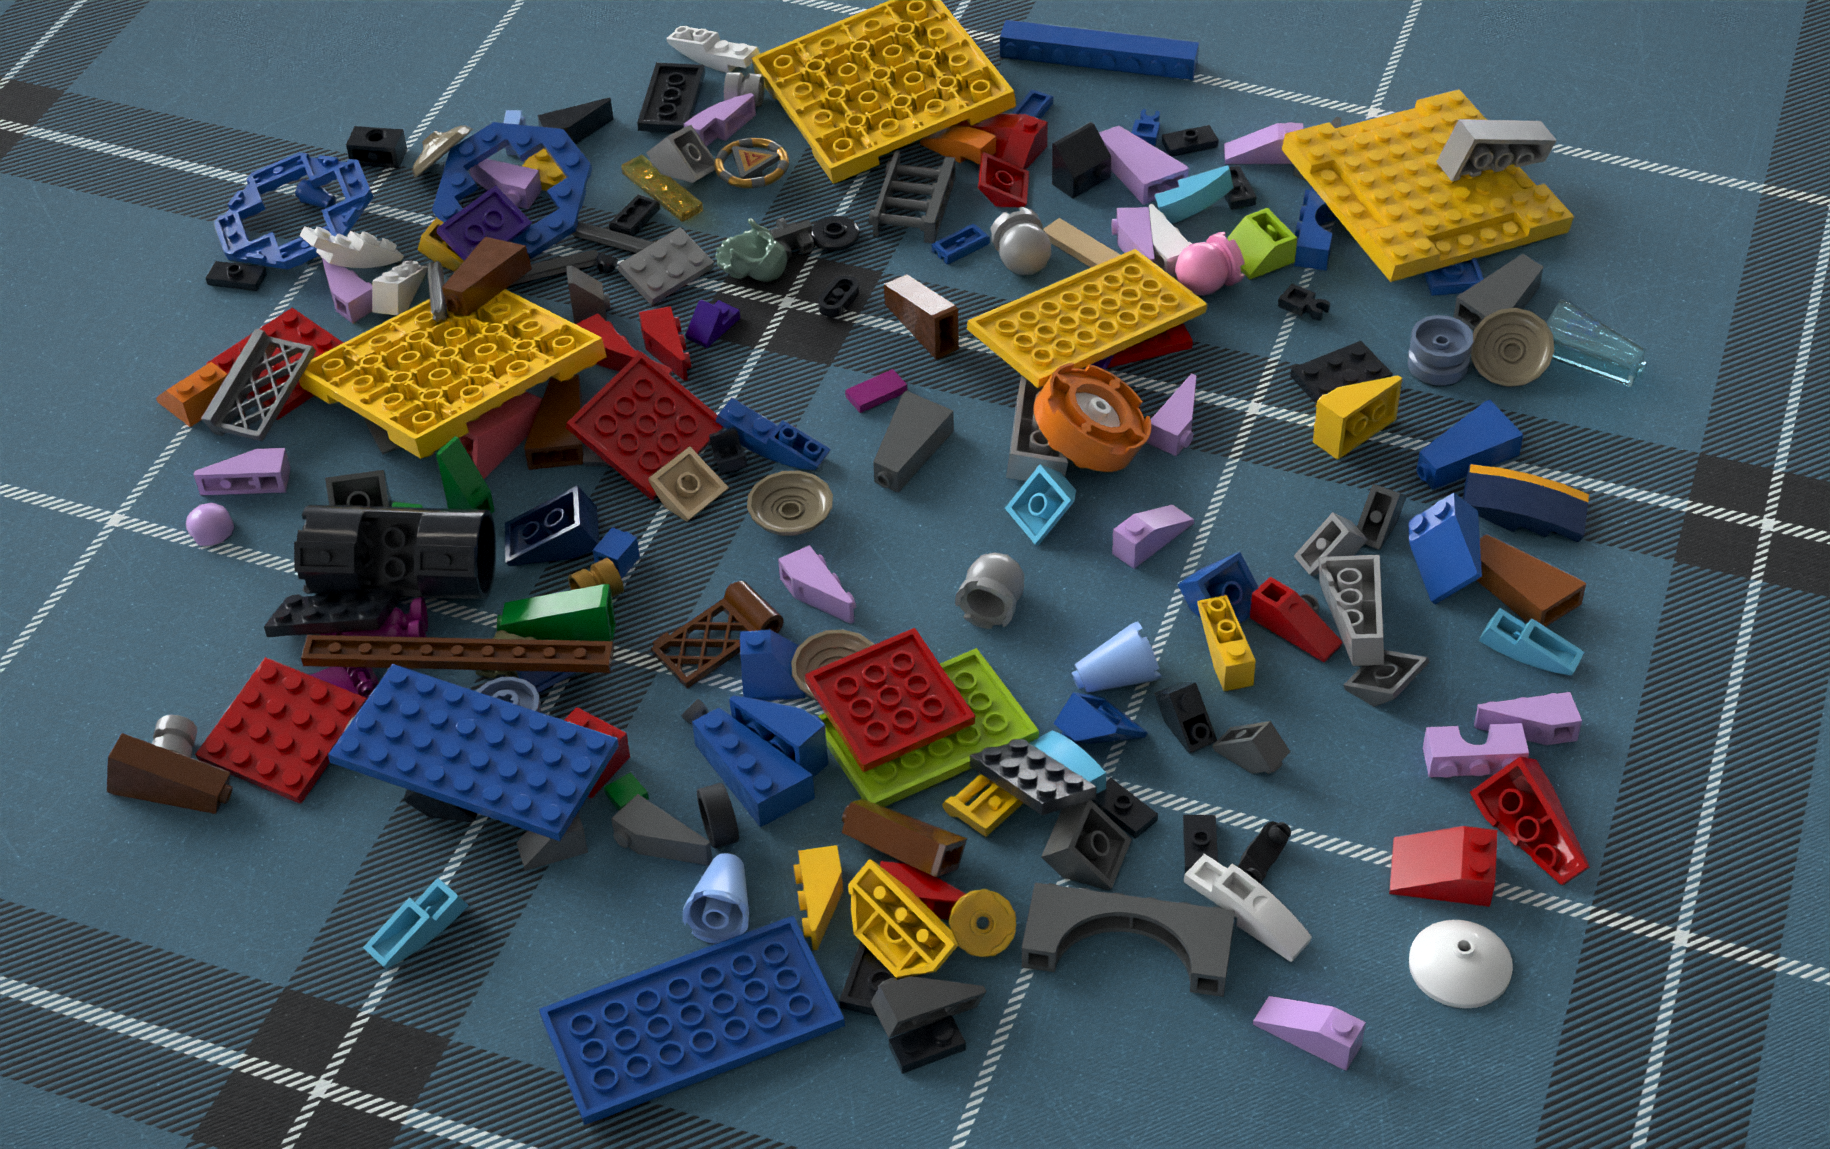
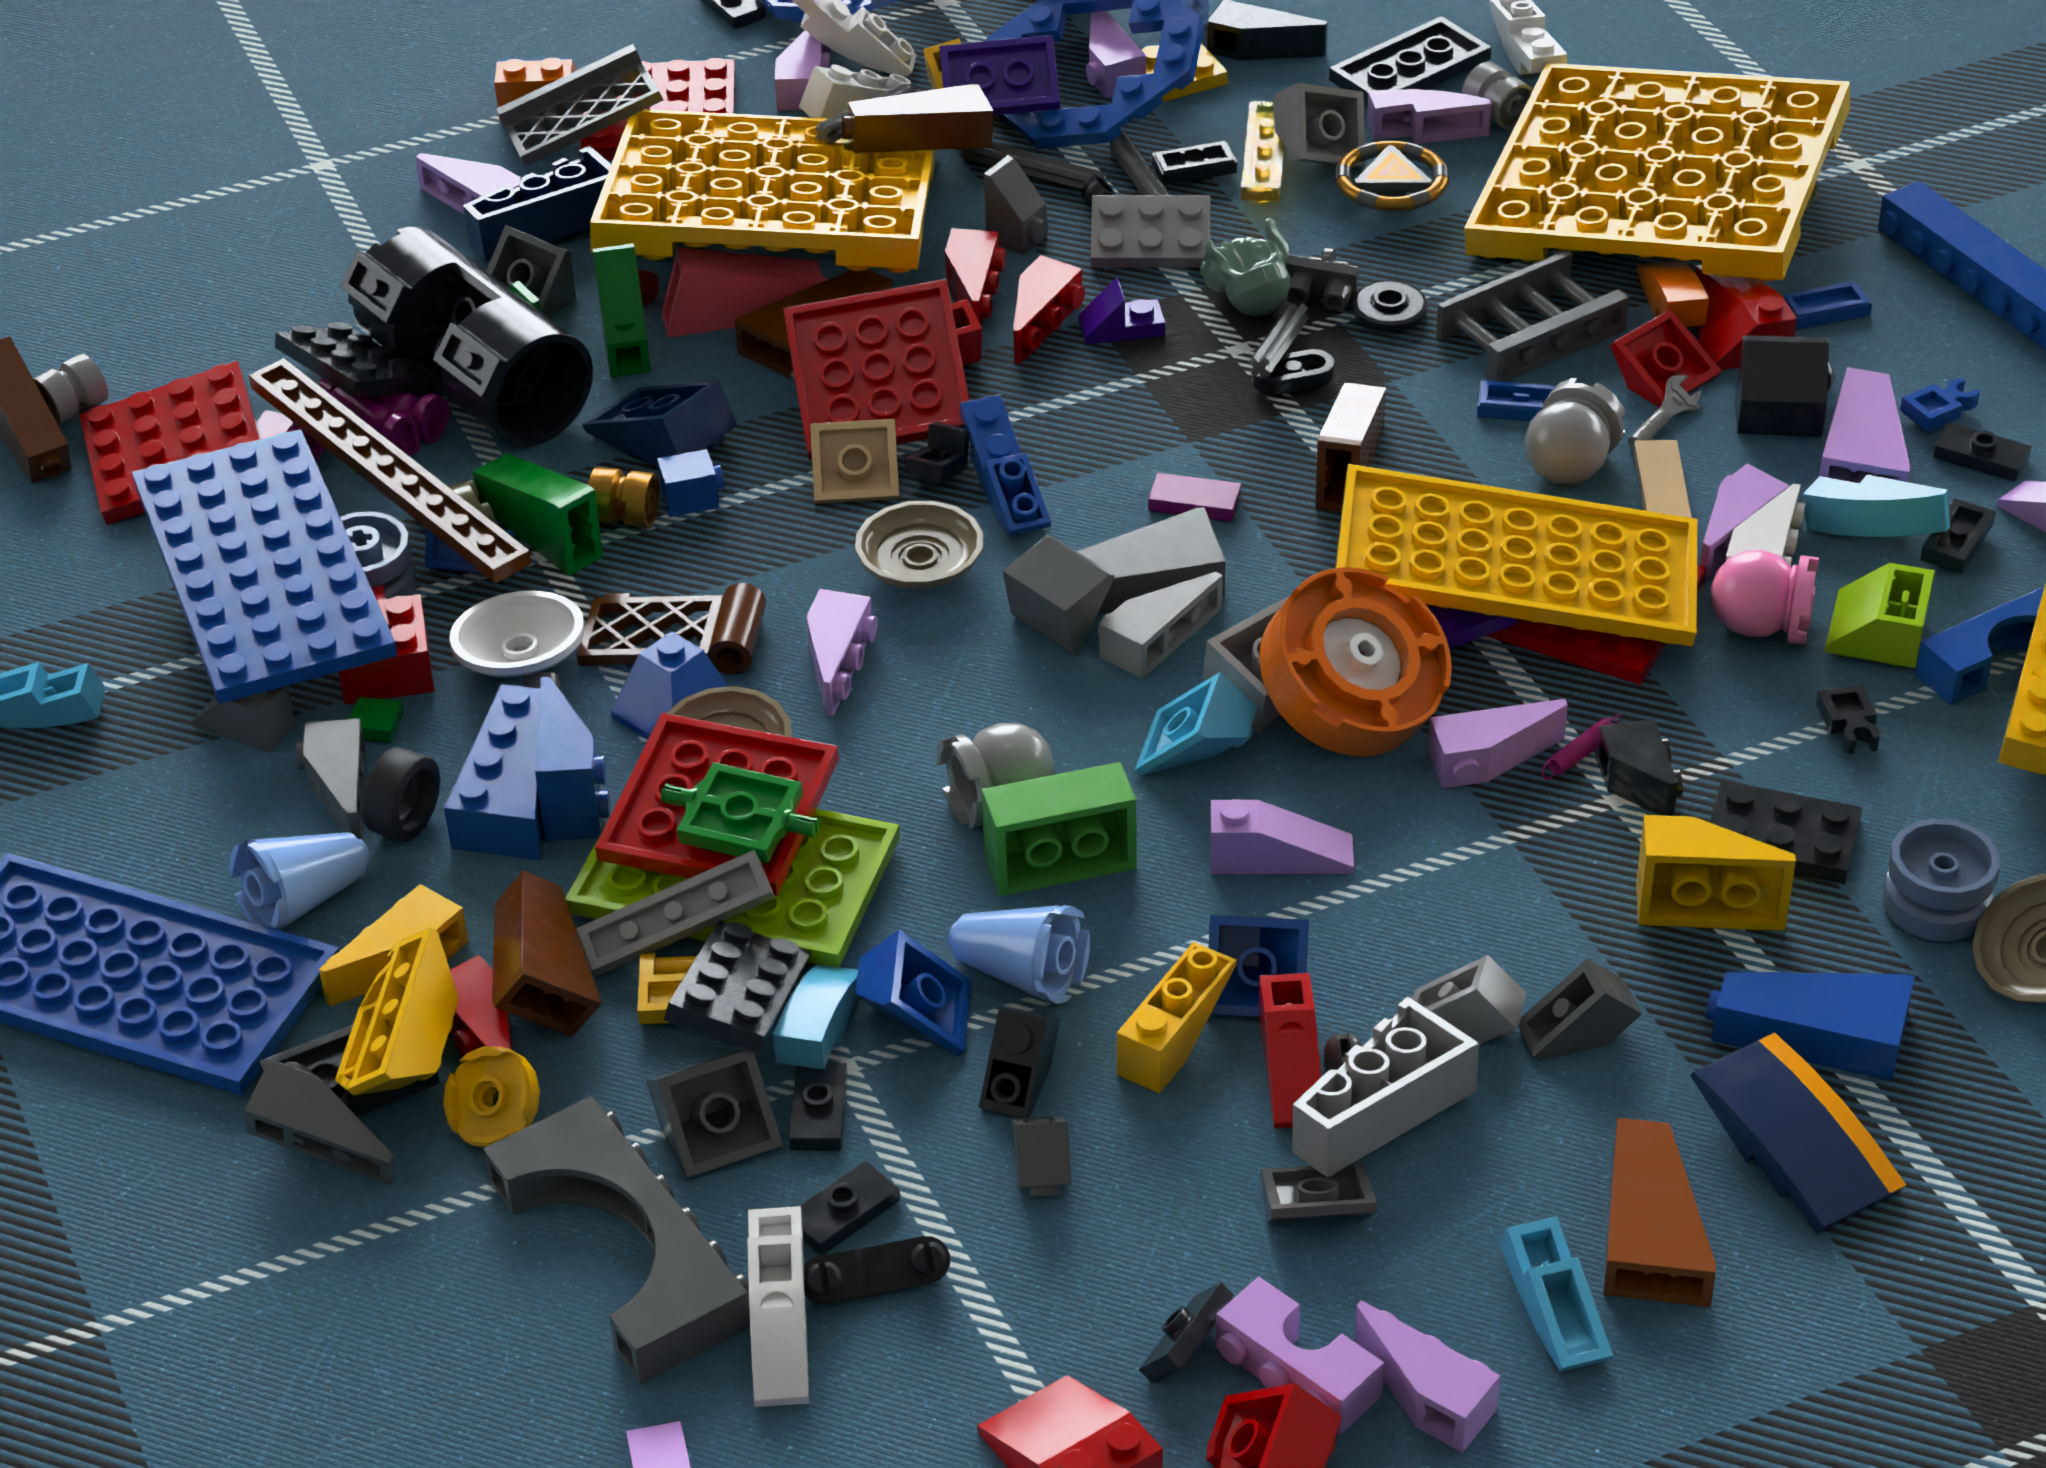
camera: 45 degrees right, 5 degrees down
(209, 524) = (381, 214): lavender hair -> none
(314, 452) = (541, 206): none -> dark blue wedge
(426, 465) = (648, 285): none -> clear red hinge
(652, 691) = (517, 633): none -> white dish
(817, 282) = (1278, 340): none -> dark grey axle
(897, 480) = (1057, 592): none -> dark grey slope
(921, 692) = (739, 811): none -> green plate
(927, 1044) = (287, 1177): black plate -> none
(945, 765) = (675, 913): none -> light grey plate
(952, 467) = (1157, 623): none -> light grey slope
(1031, 198) = (1674, 403): none -> light grey piece
(1061, 593) = (1059, 828): none -> bright green brick
(1211, 393) = (1576, 749): none -> dark pink piece
(1253, 385) = (1639, 766): none -> black slope
(1420, 777) = (1185, 1332): none -> black plate
(1446, 546) = (1595, 1093): blue slope -> none

